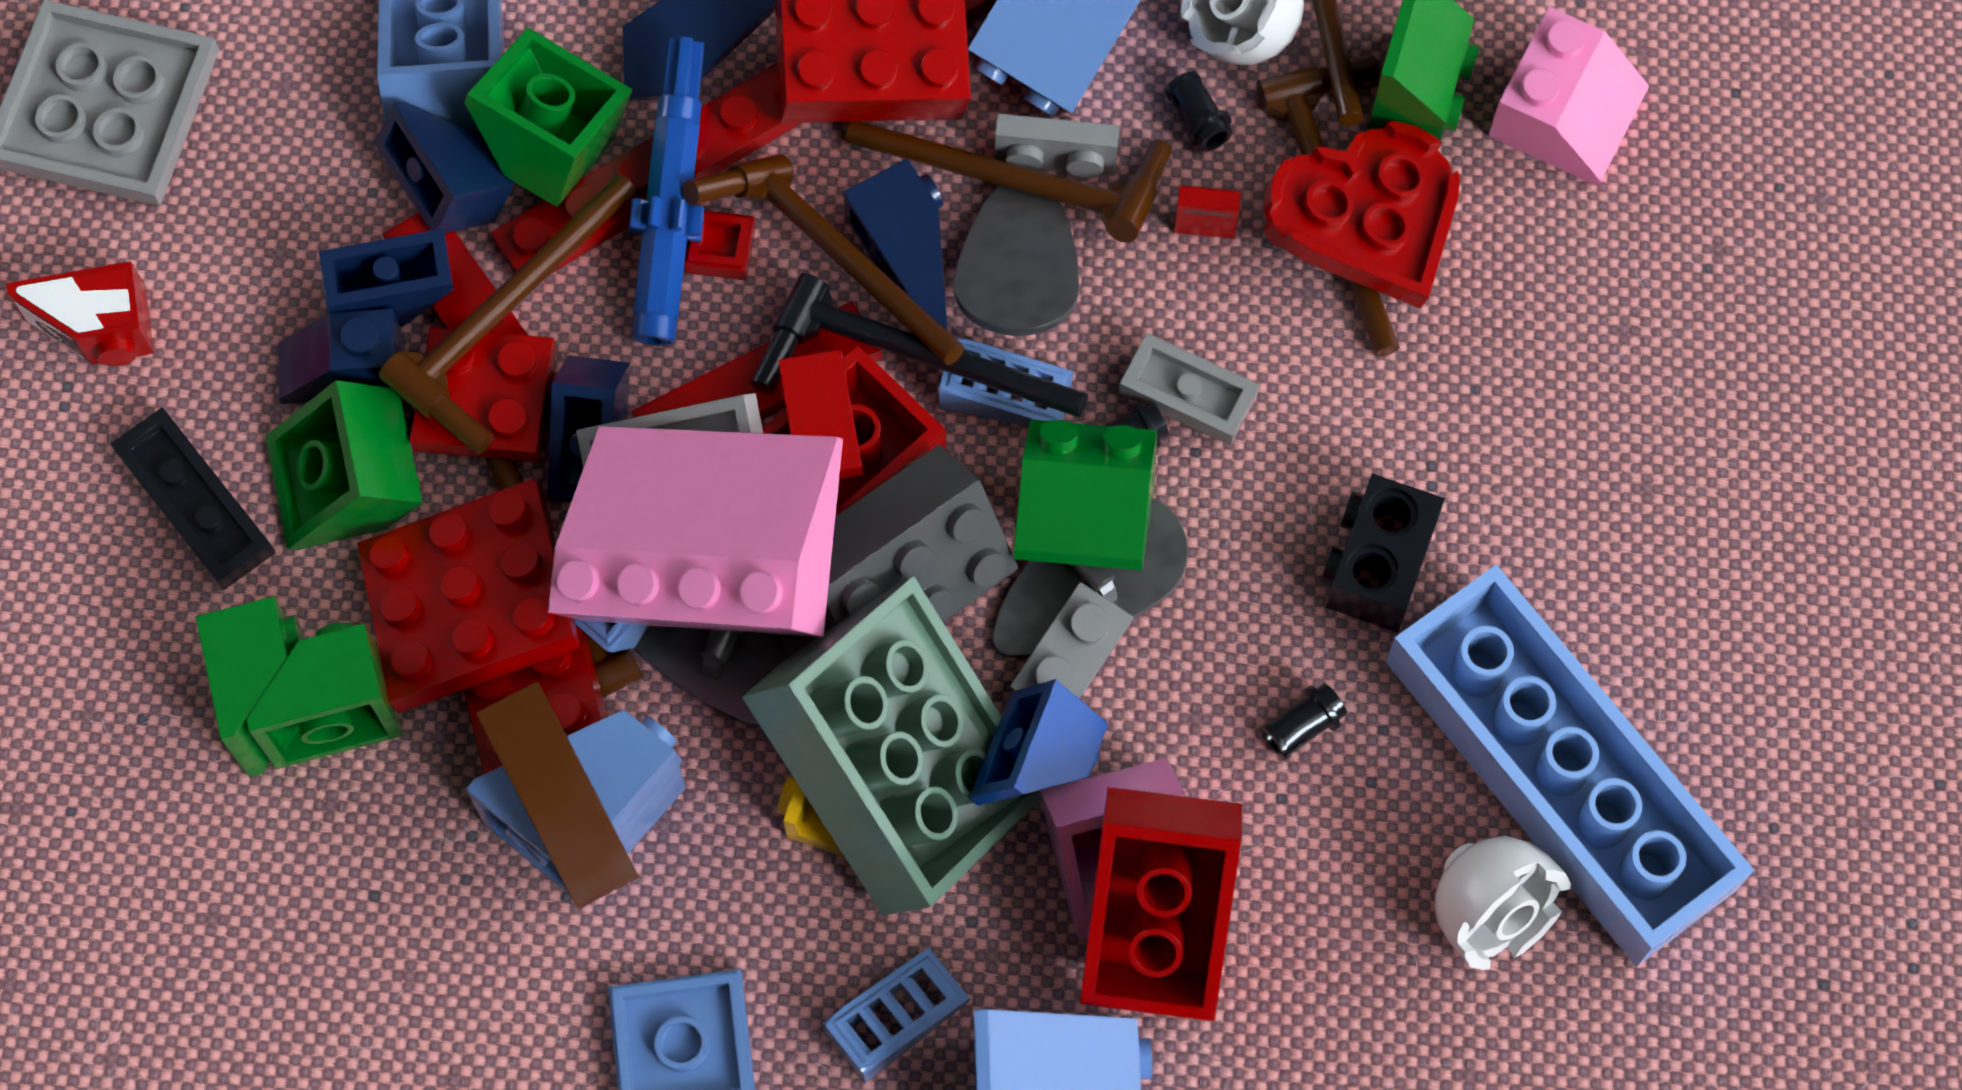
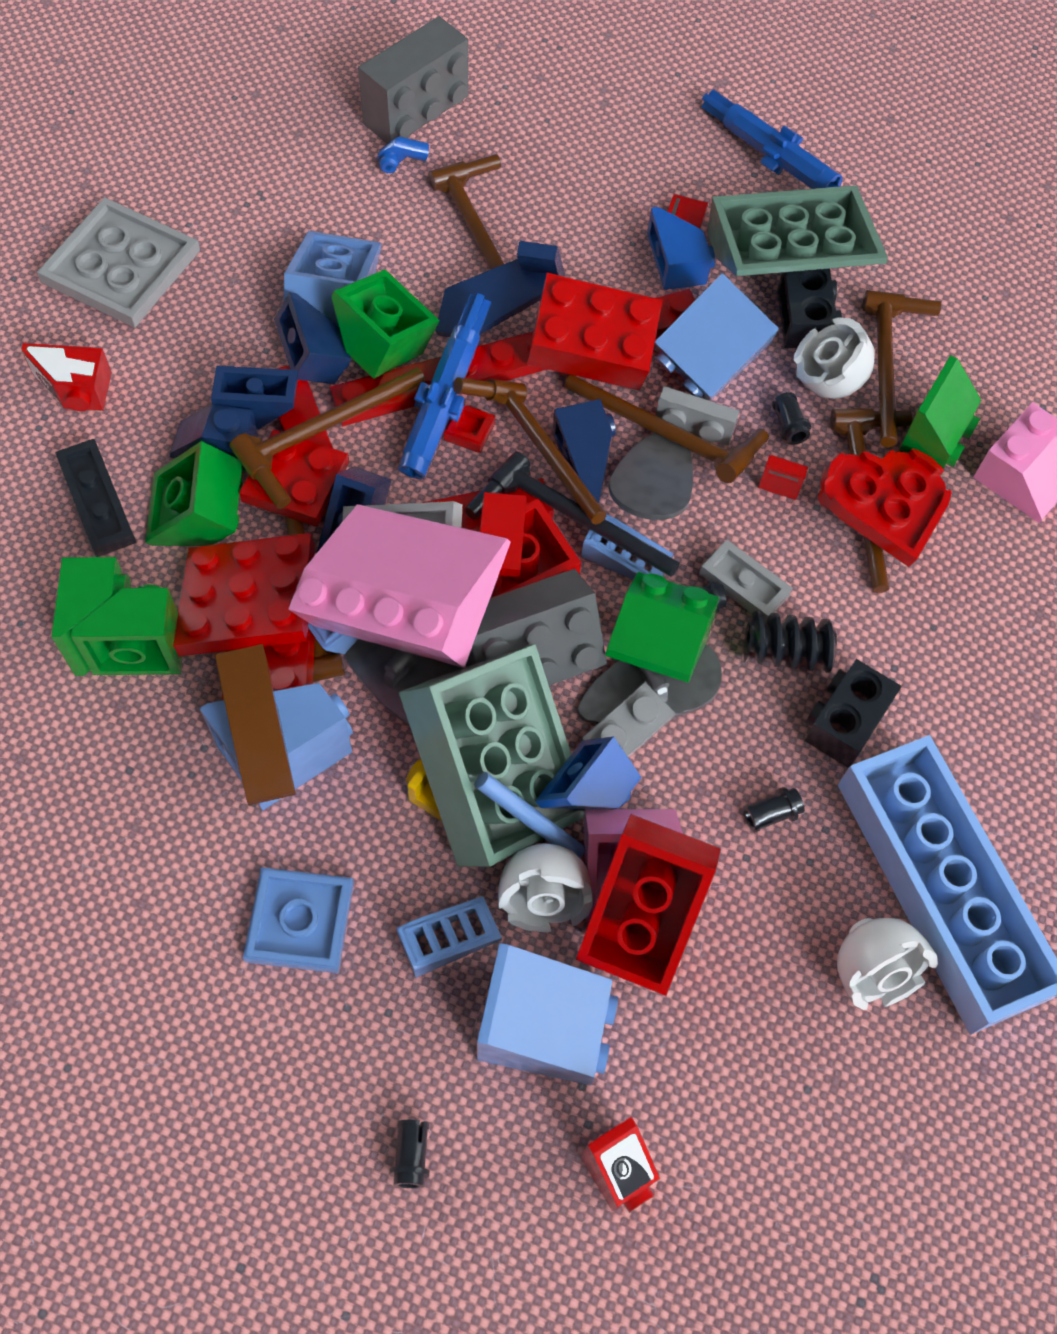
camera: 10 degrees right, 5 degrees down
(968, 822) = (527, 814): none -> medium blue bar
(1011, 913) = (545, 887): none -> white cylinder
(1273, 466) = (790, 640): none -> black piece

